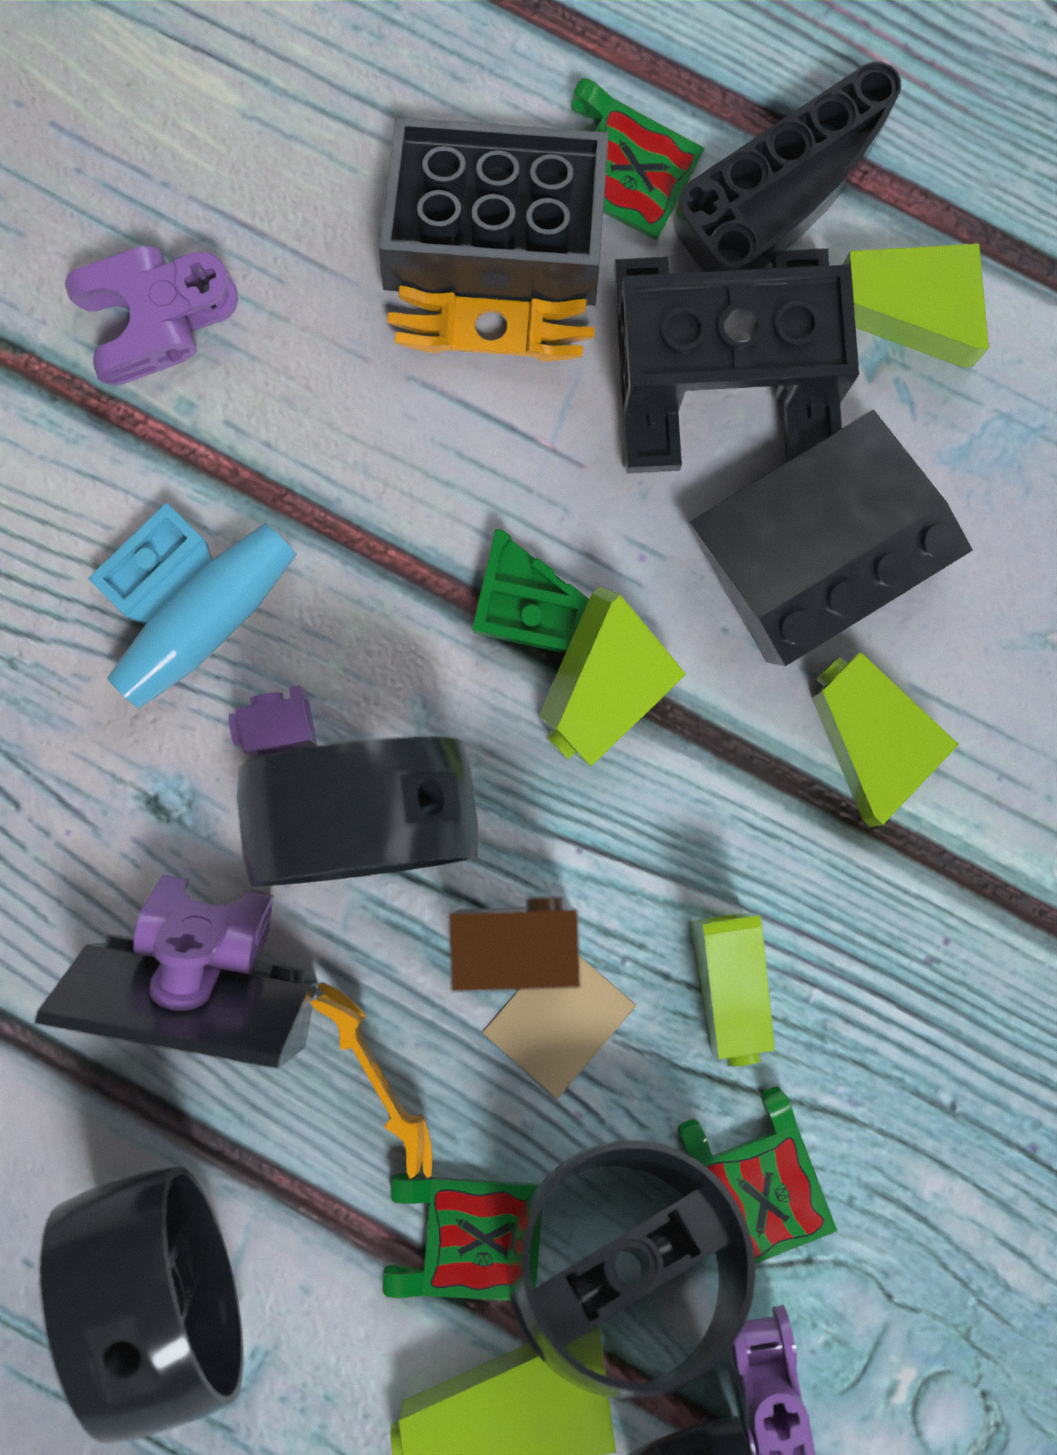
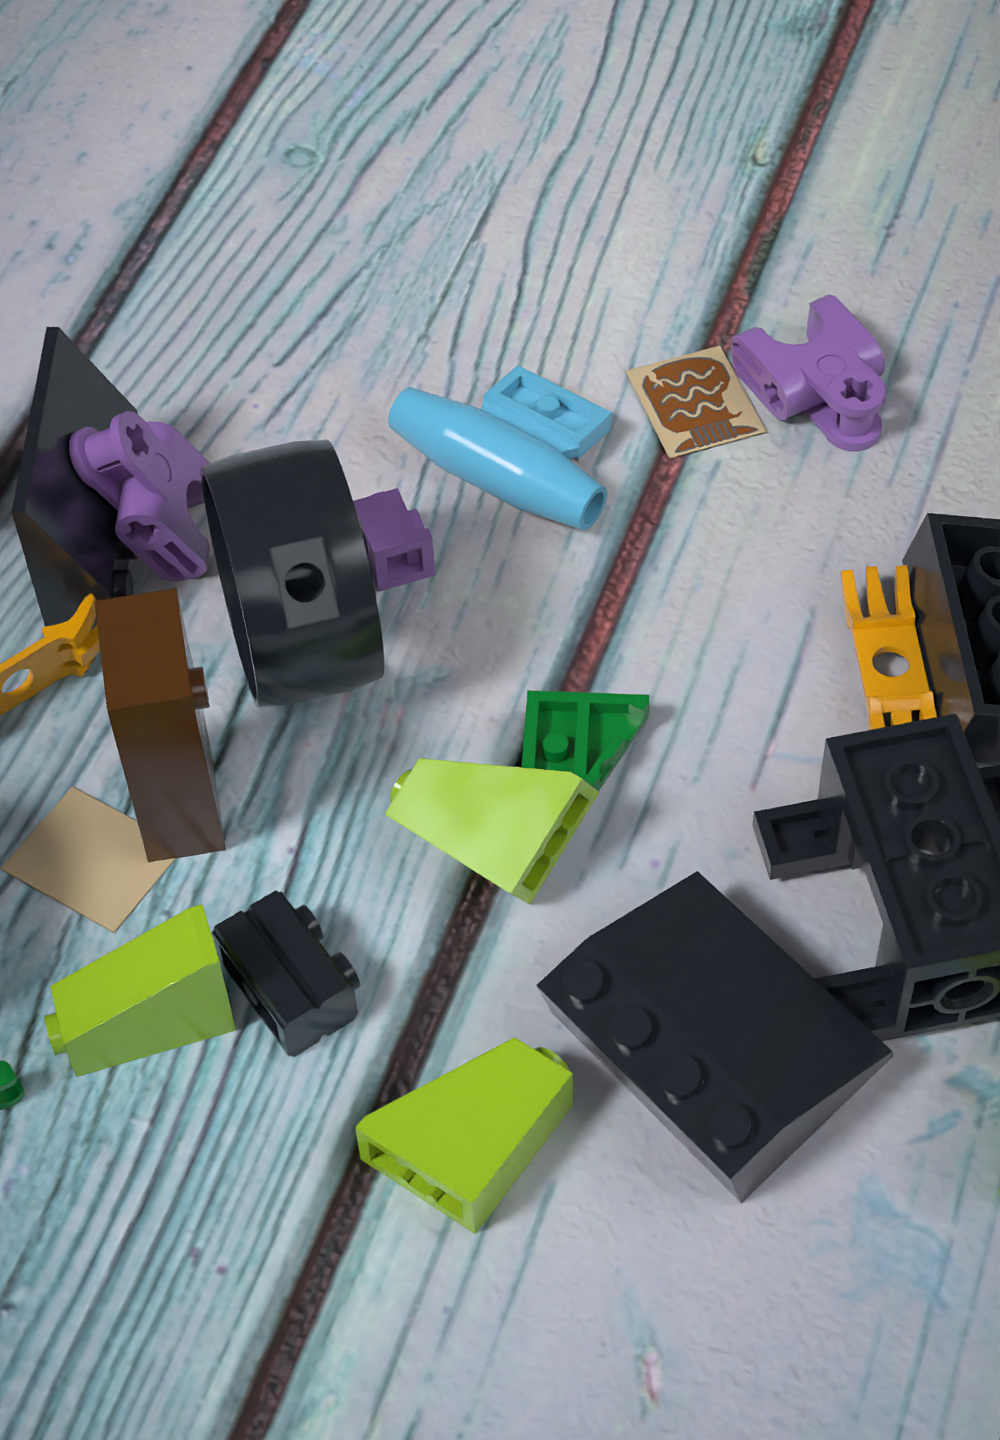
camera: 85 degrees right, 30 degrees down
(149, 428) = (695, 401): none -> sticker
(716, 865) = (287, 971): none -> black brick

